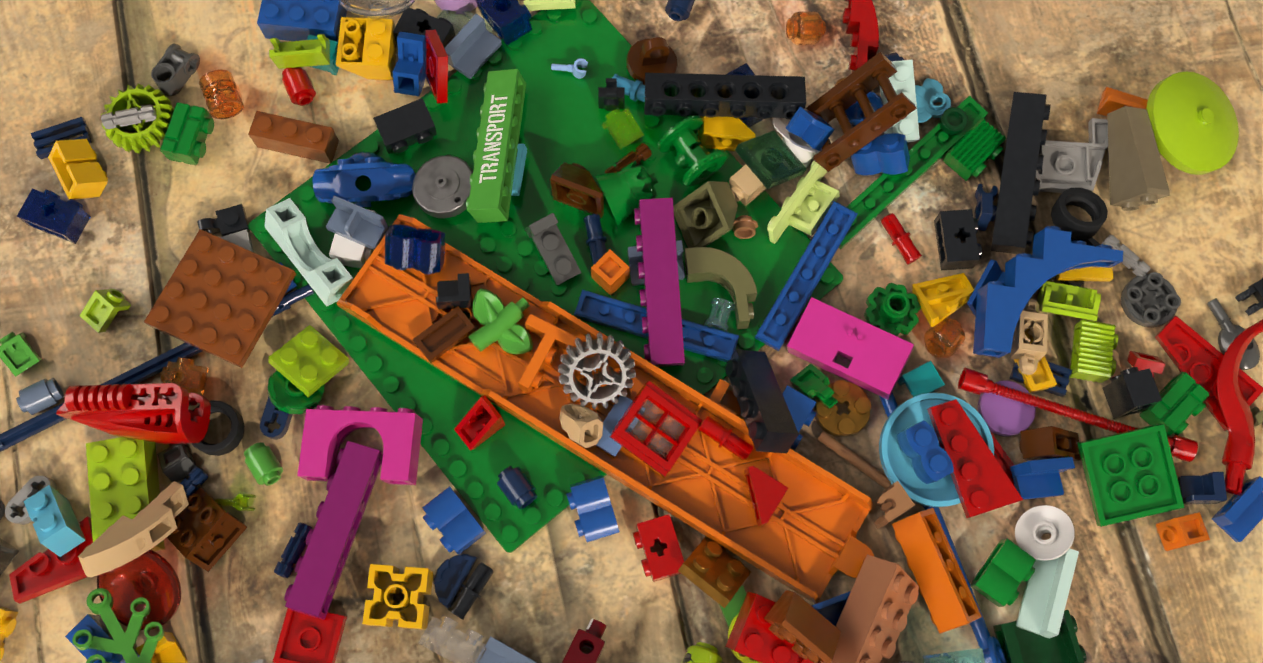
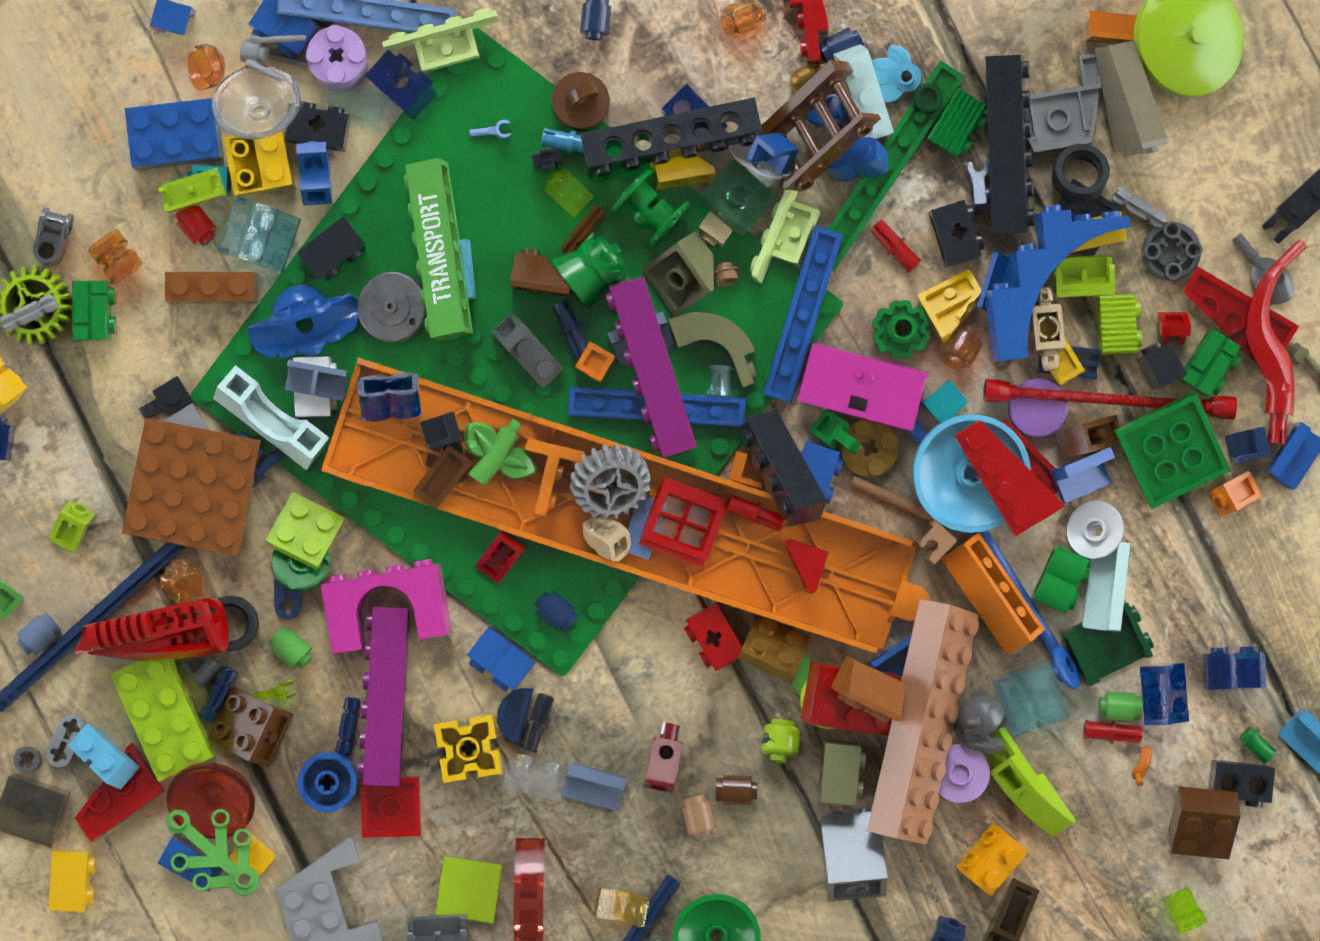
camera: 10 degrees left, 15 degrees up
(133, 537) = (197, 757): tan slope -> none
(239, 601) = (316, 793): none -> blue brick
(349, 105) = (259, 234): none -> clear light blue slope
(436, 66) = (347, 173): red tile -> none
(472, 47) = (378, 135): sand blue panel -> none
(593, 508) = (638, 613): blue brick -> none
(922, 446) = (953, 477): blue brick -> none

